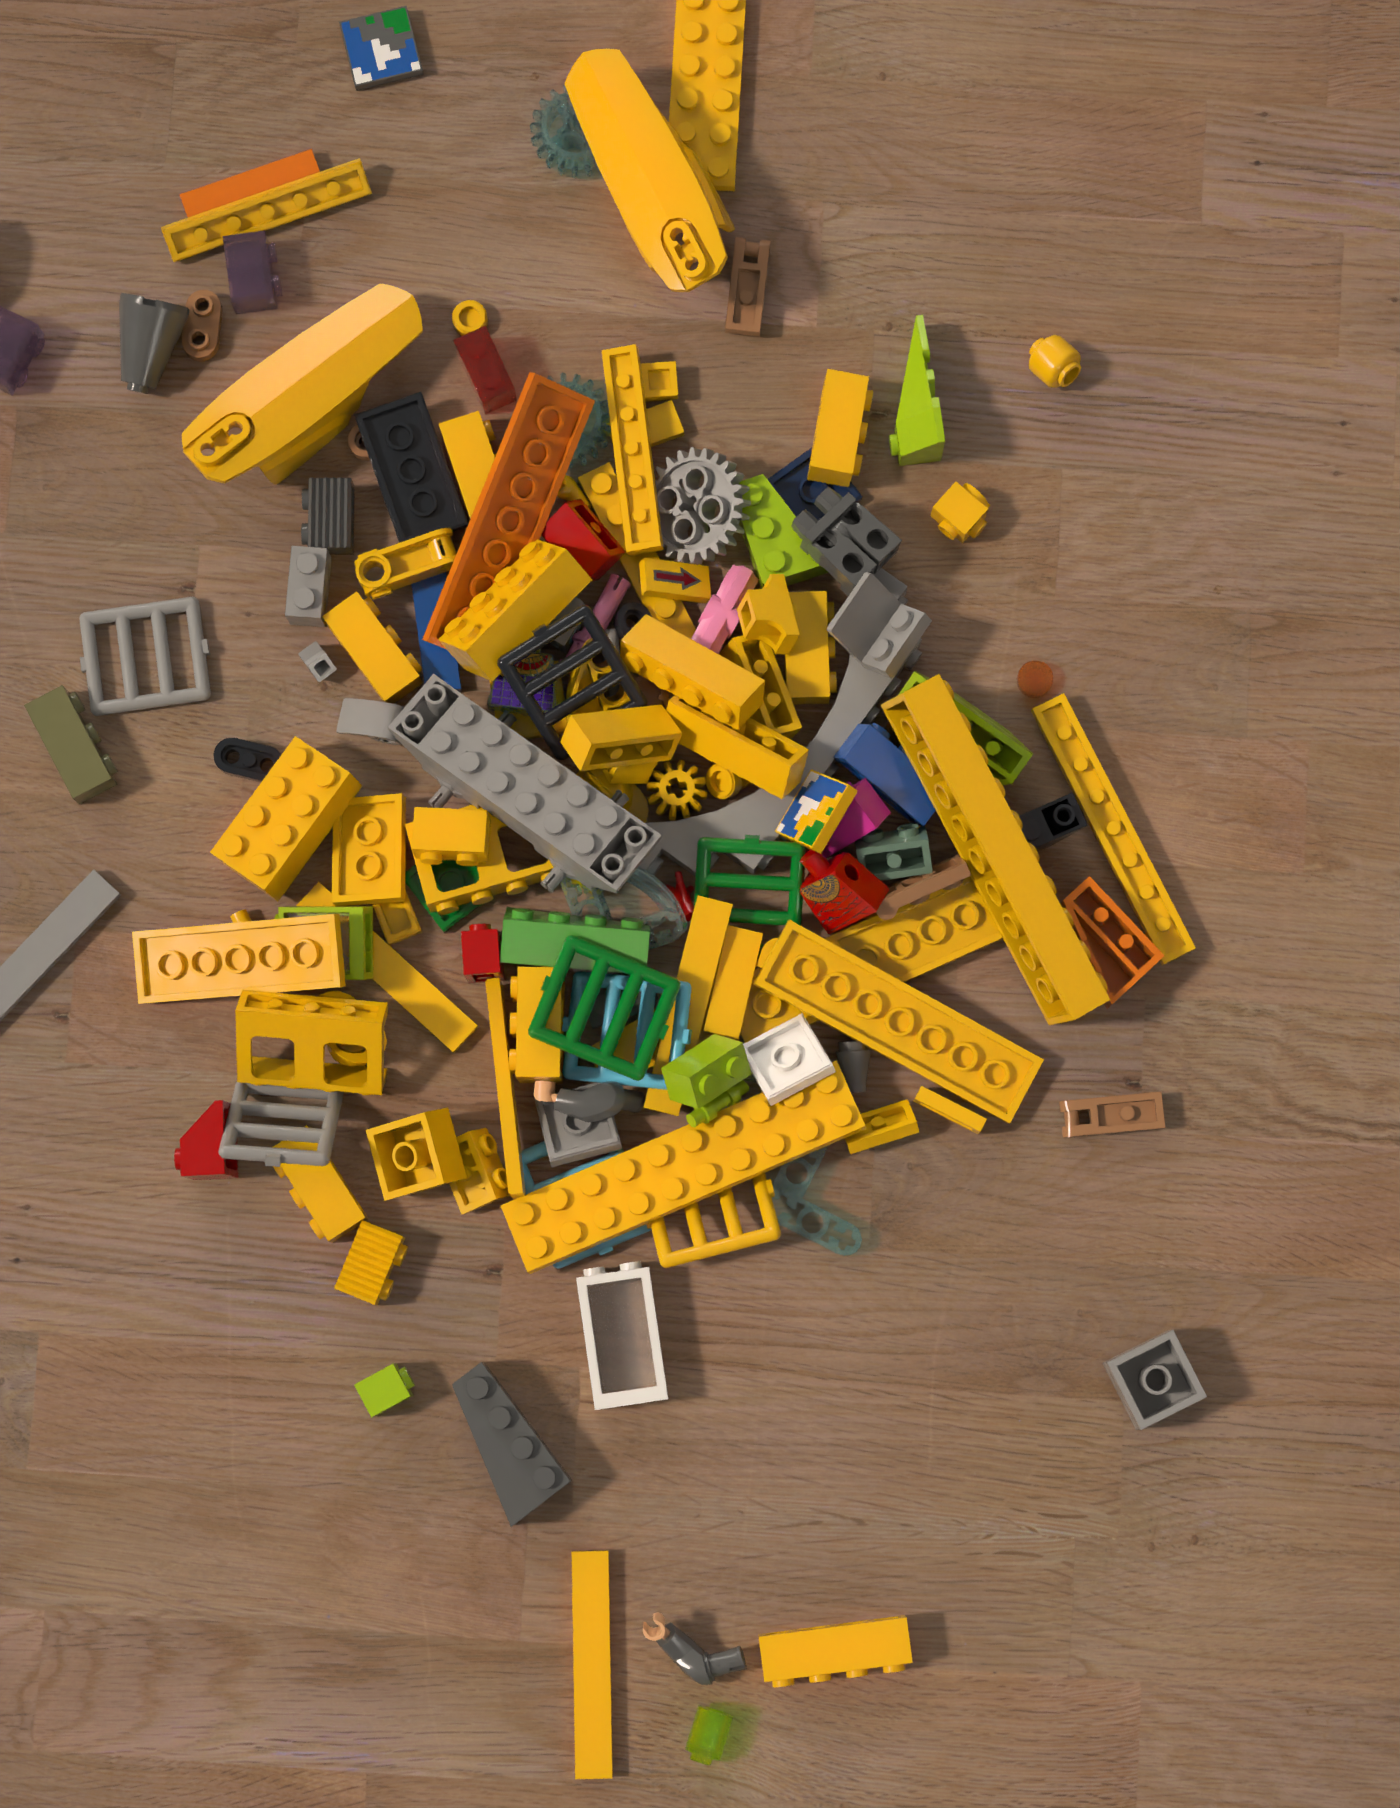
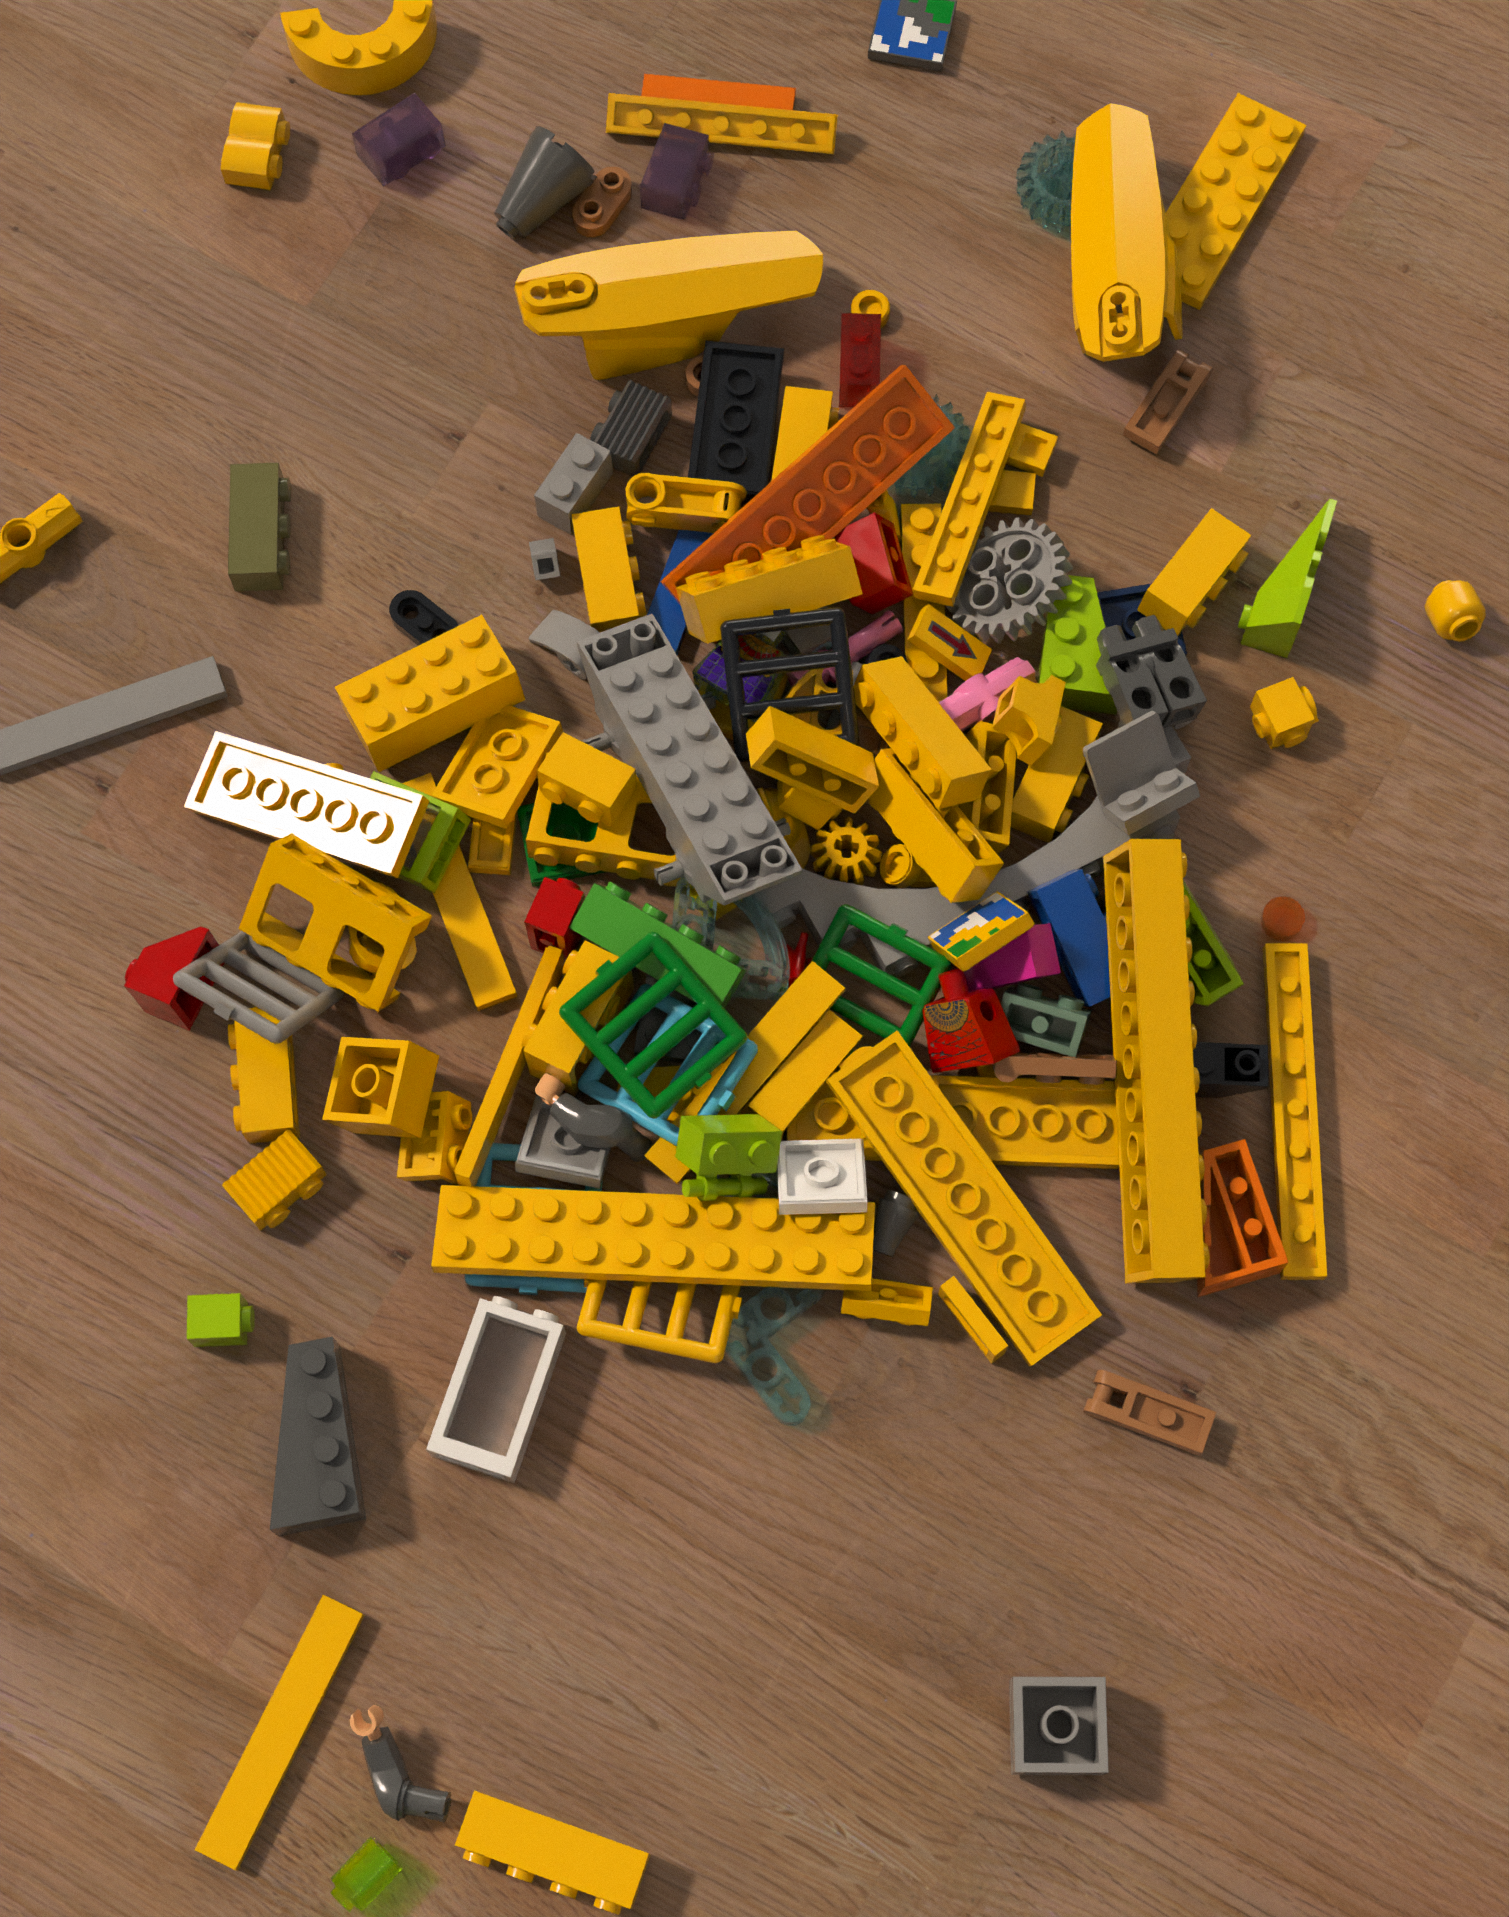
camera: 25 degrees right, 10 degrees down
(122, 617) = (379, 526): light grey bar -> none

